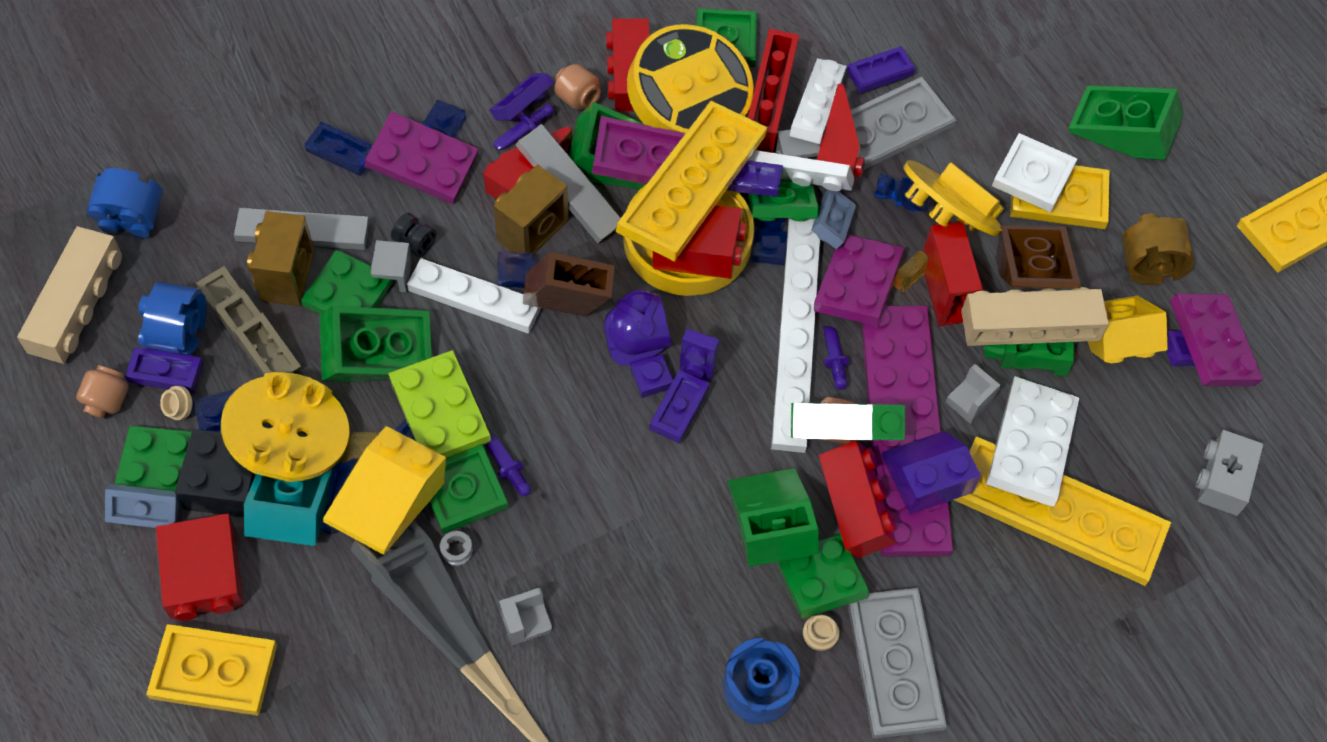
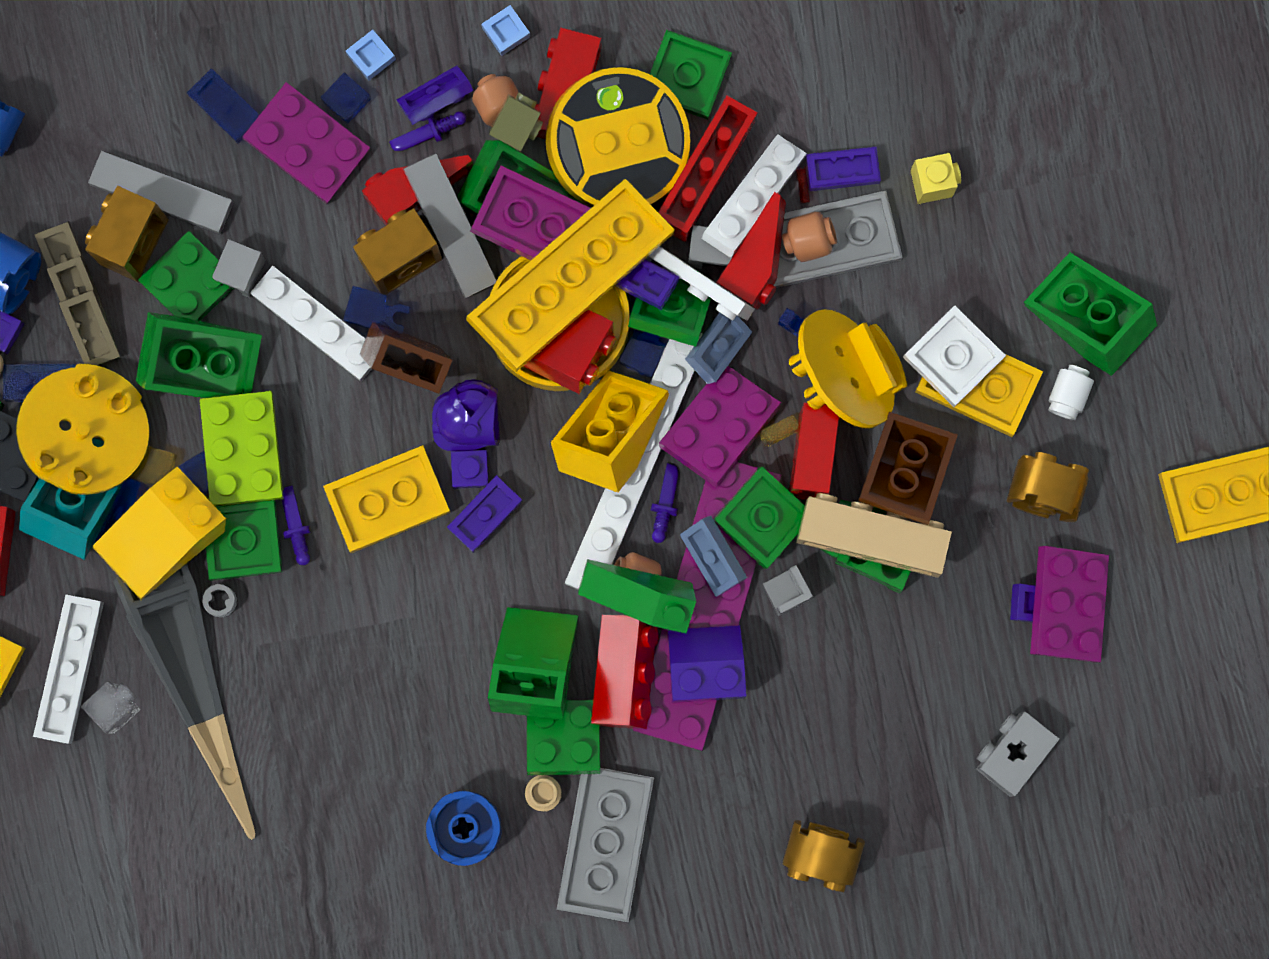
camera: 20 degrees right, 20 degrees up
(326, 651) = (68, 669): none -> white plate
(379, 670) = (111, 706): none -> clear brick
(410, 231) = (272, 236): black wheel -> none
(456, 82) = (370, 55): none -> light blue plate
(525, 616) = (264, 693): light grey panel -> none
(565, 38) = (505, 30): none -> light blue plate
(585, 418) = (386, 499): none -> yellow plate
(602, 84) = (516, 121): none -> olive brick
(699, 355) = (516, 472): dark purple plate -> none
(767, 307) = (609, 431): none -> yellow slope
(851, 89) = (801, 183): none -> clear red leg
(877, 116) = (810, 236): none -> nougat head
(899, 377) = (713, 556): none -> sand blue plate
(928, 336) = (761, 517): none -> green plate
(958, 55) = (935, 178): none -> light yellow brick
(1033, 441) = (828, 661): white plate -> none
(1080, 522) = (829, 742): yellow plate -> none
(1103, 603) = (823, 855): none -> pearl gold brick
(1133, 330) = (979, 561): yellow slope -> none
(1138, 181) = (1070, 392): none -> white brick

